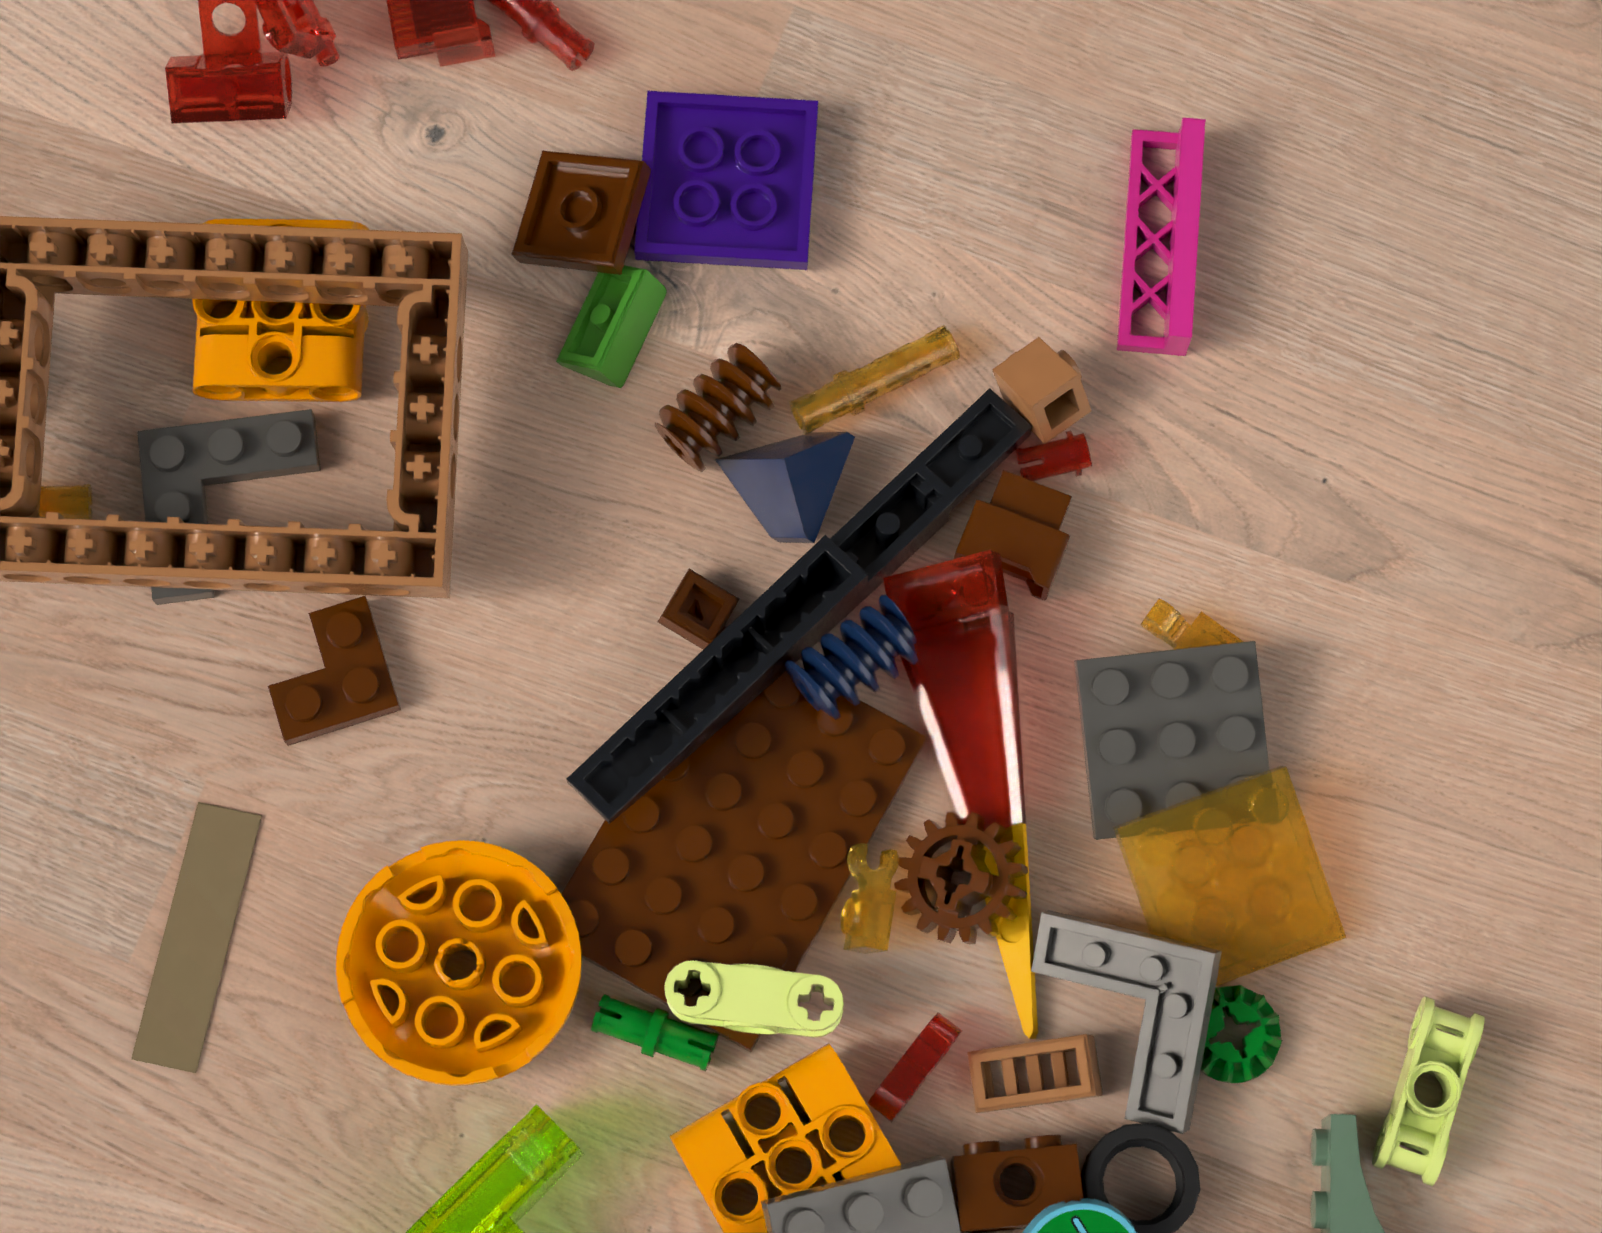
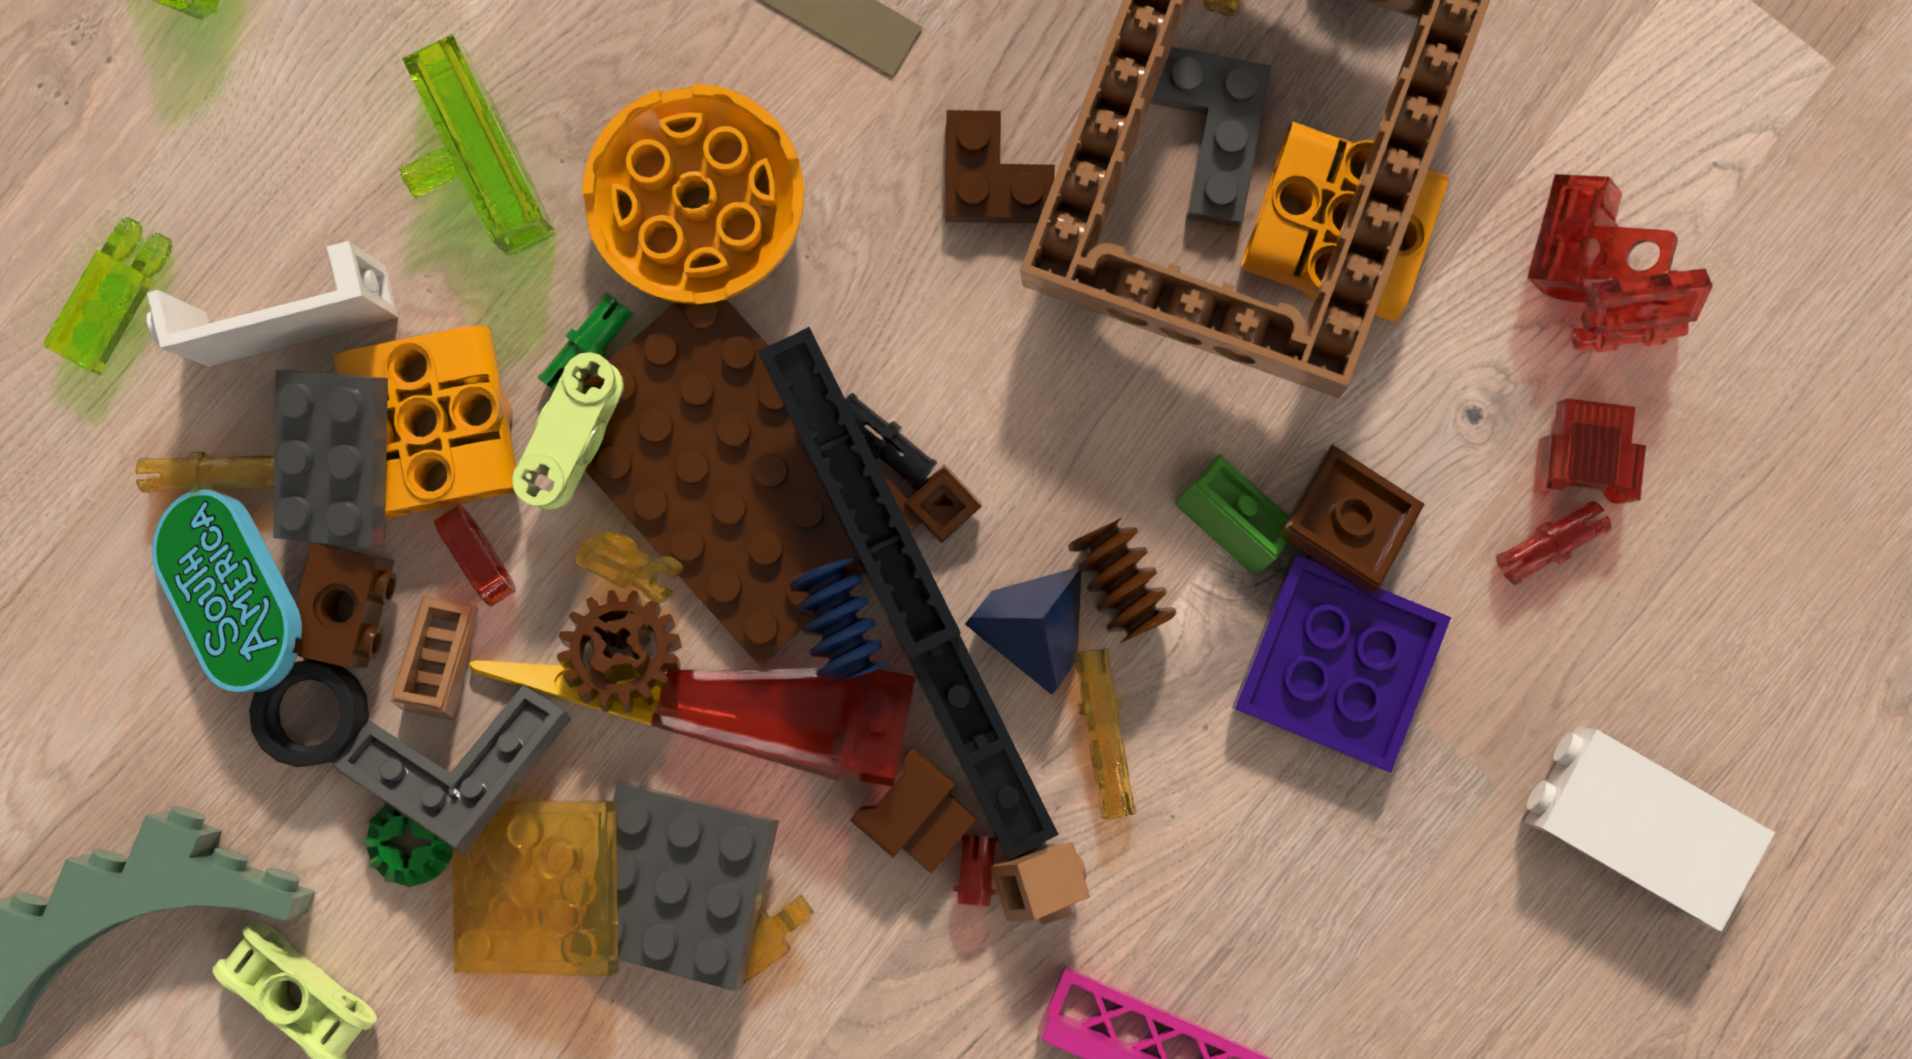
camera: 105 degrees right, 10 degrees up
(666, 653) = (913, 466): none -> black pin

